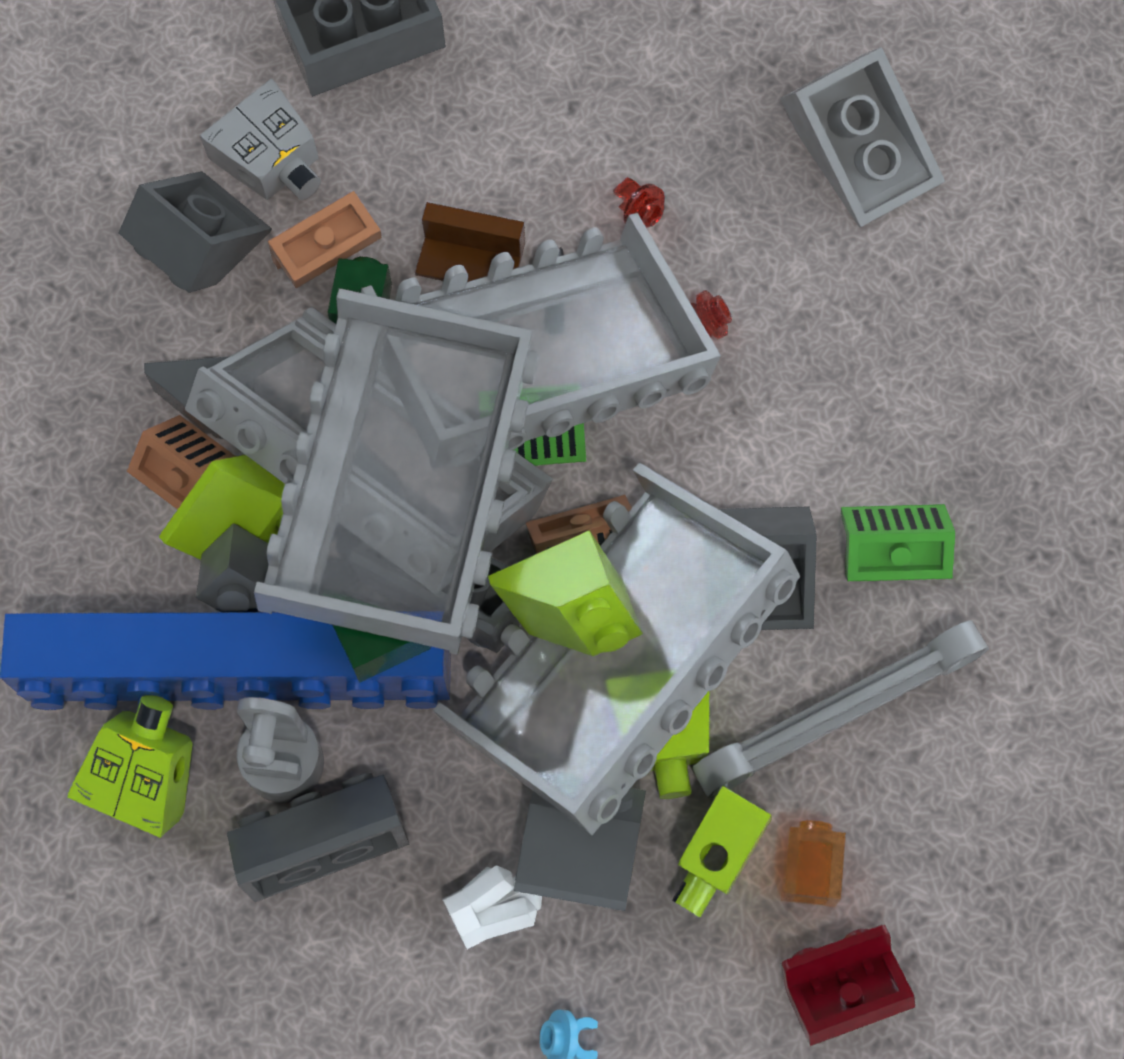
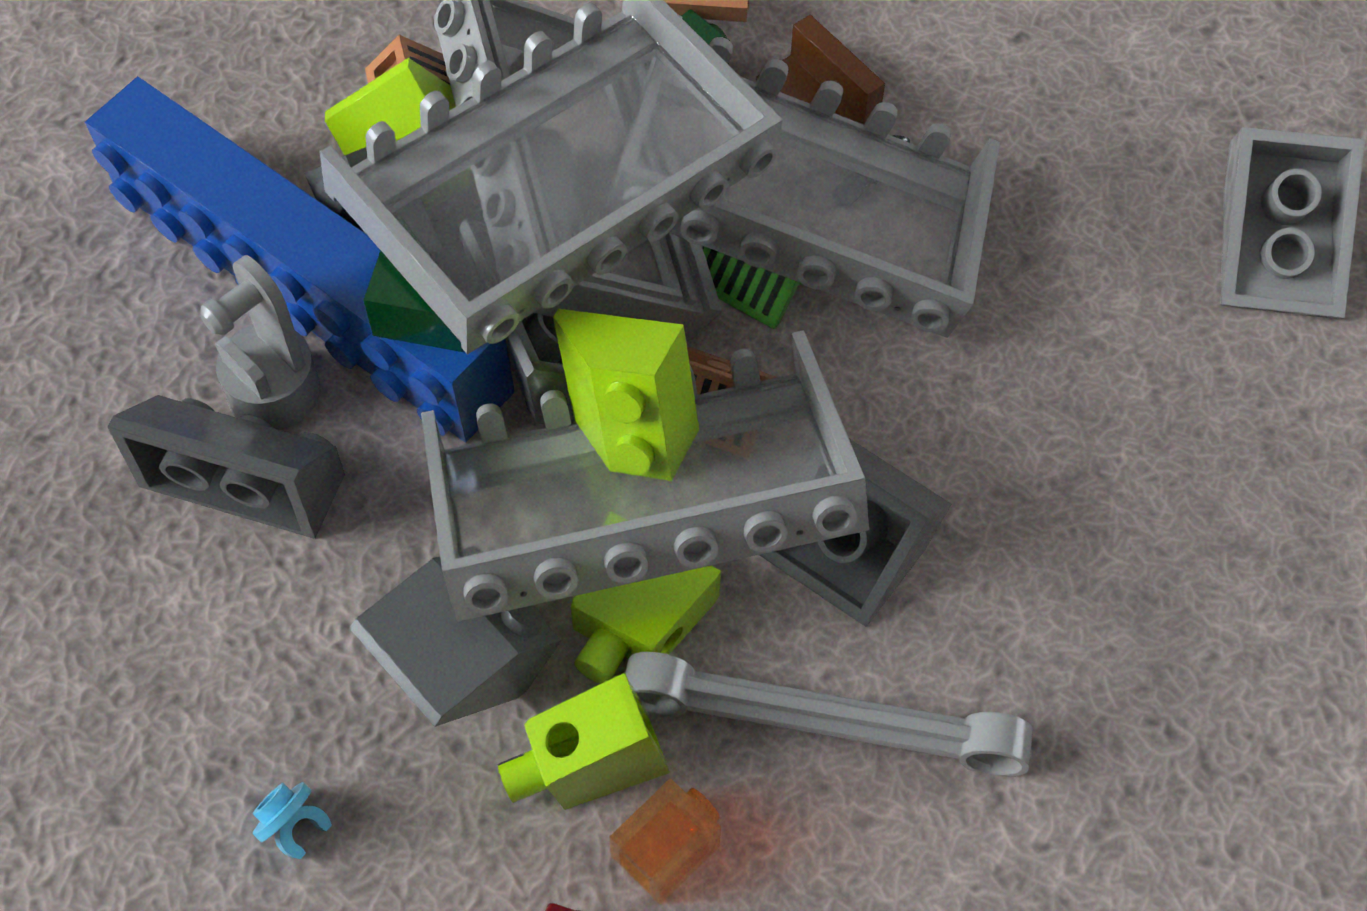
camera: 35 degrees right, 10 degrees down
(137, 769) = (138, 293): lime torso -> none
(491, 907) = (320, 640): white rock -> none
(644, 200) = (1019, 147): clear red plate -> none
(712, 313) = (1001, 279): clear red plate -> none
(898, 542) = (1017, 606): bright green panel -> none

